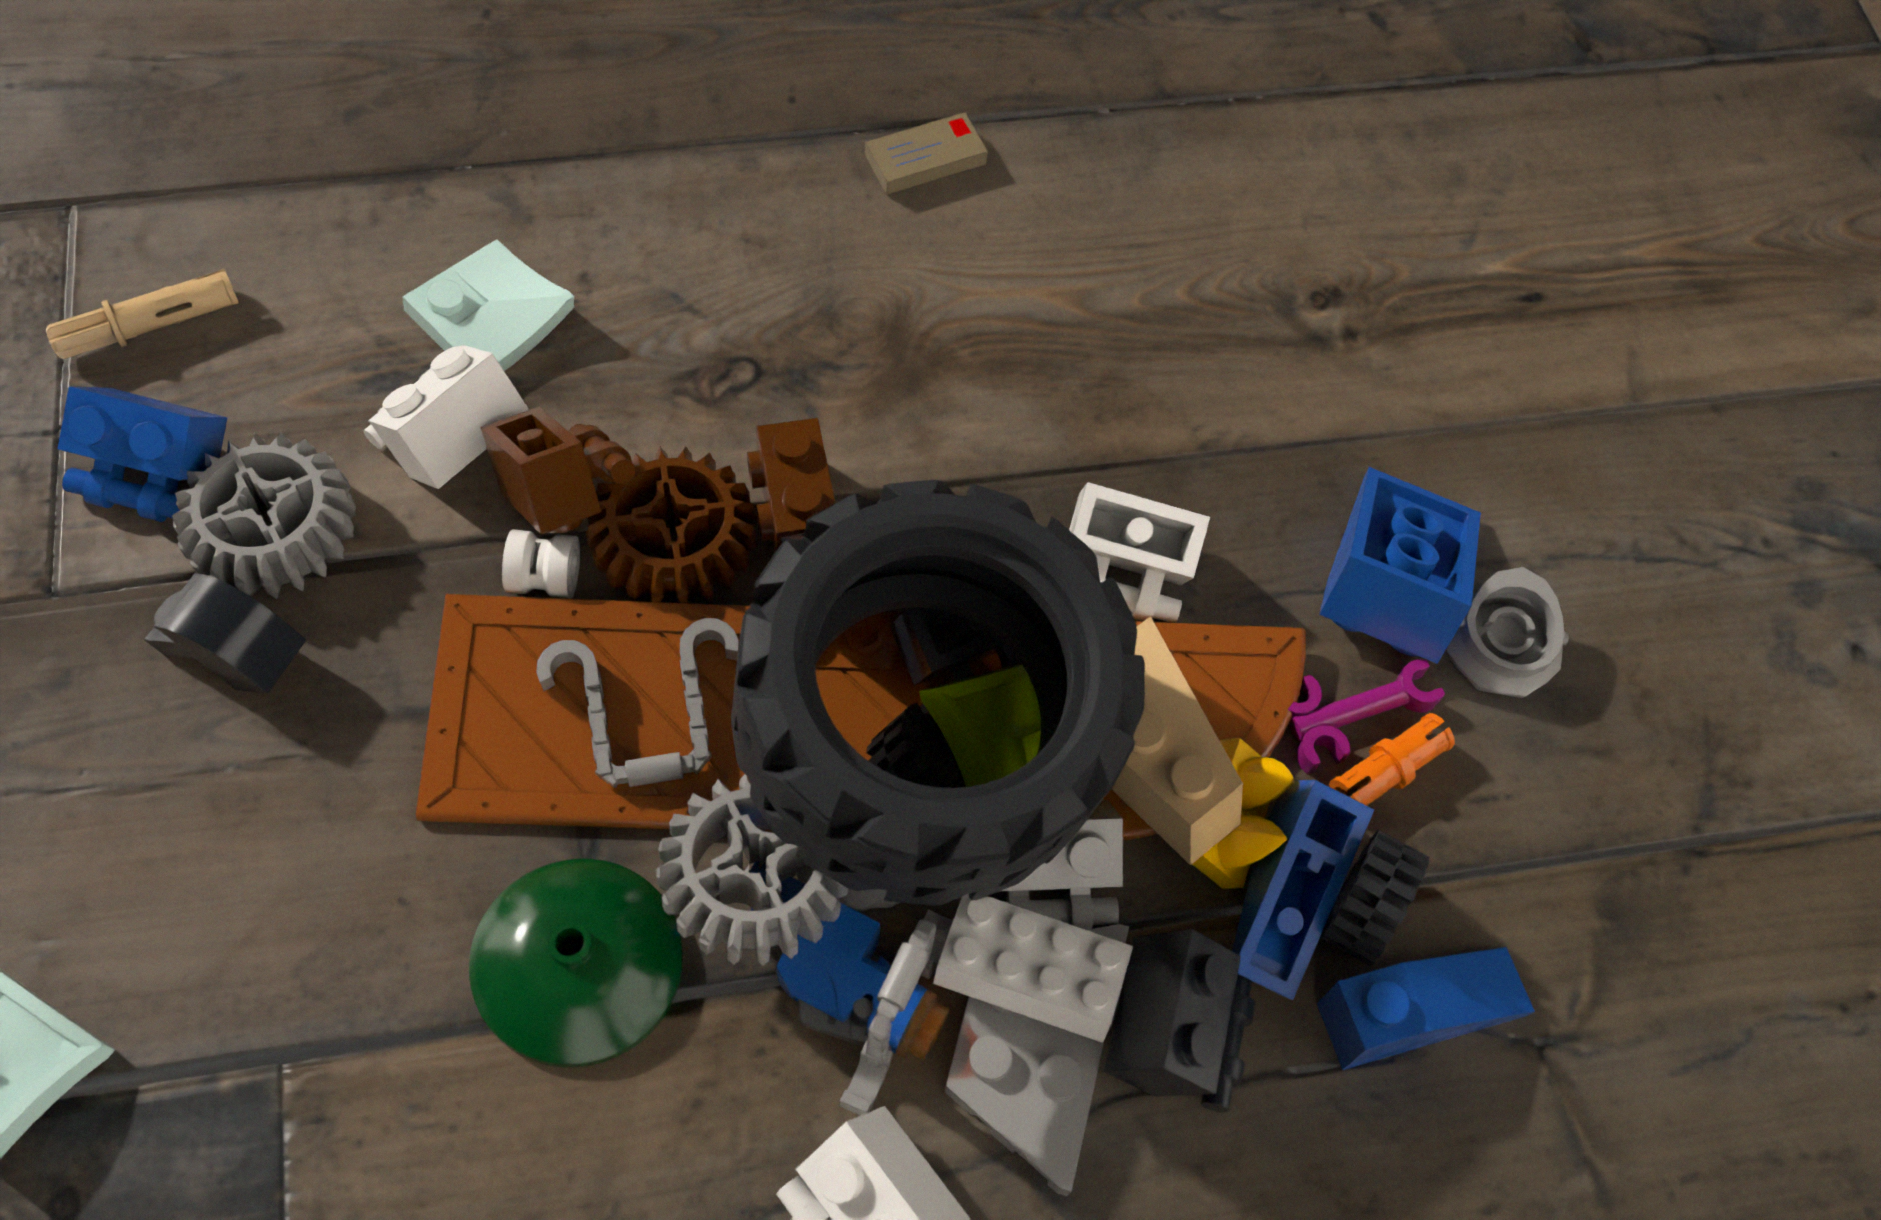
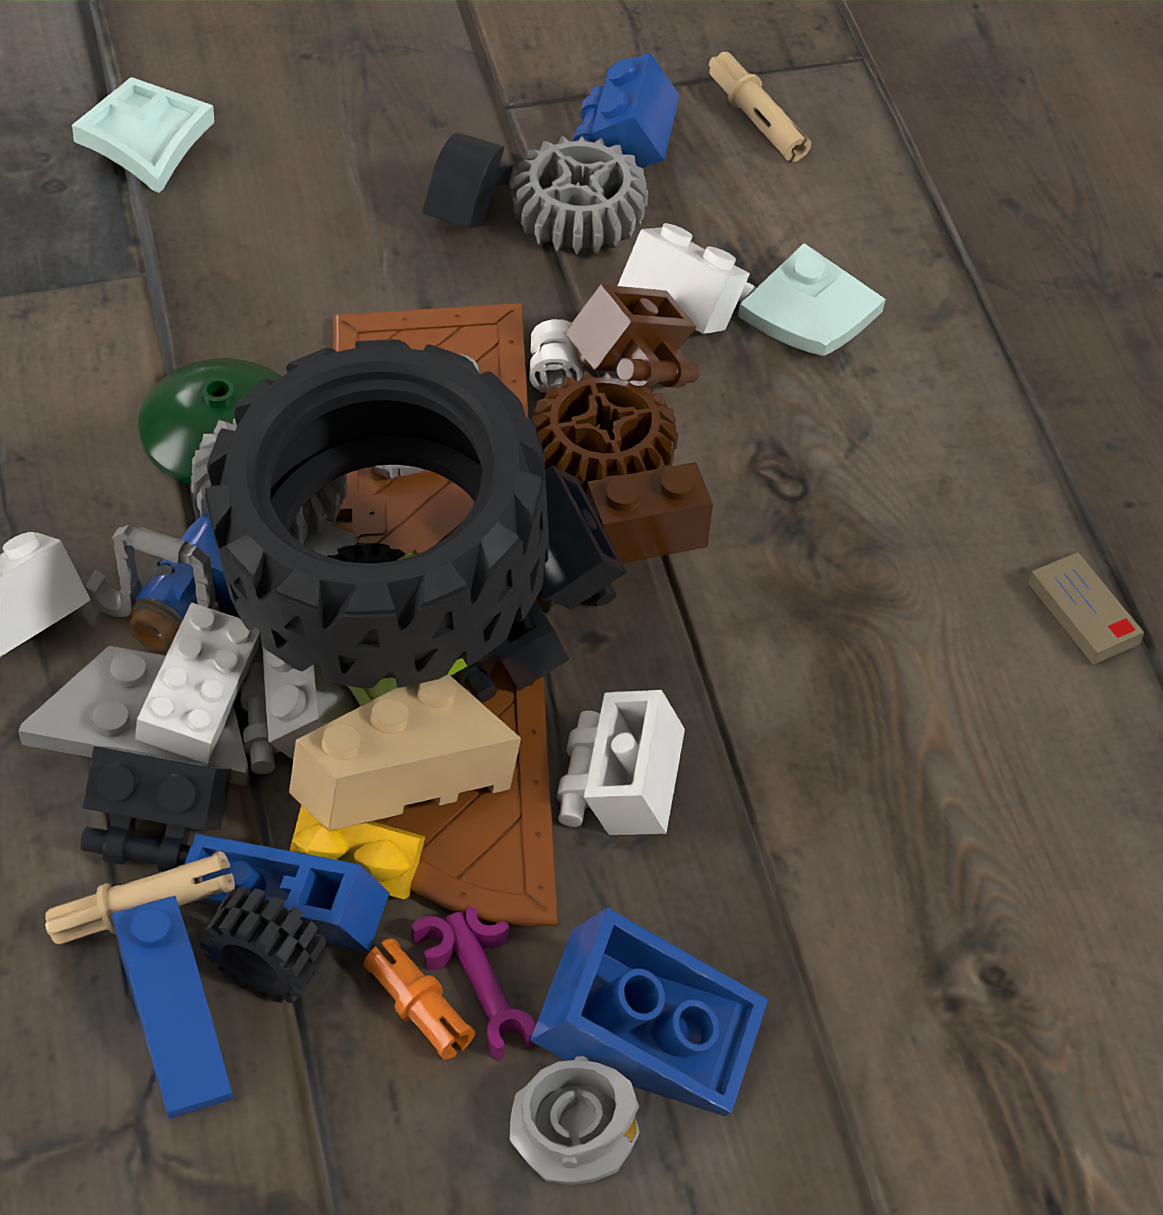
camera: 90 degrees right, 10 degrees down
(1316, 1032) = (94, 912): none -> tan axle

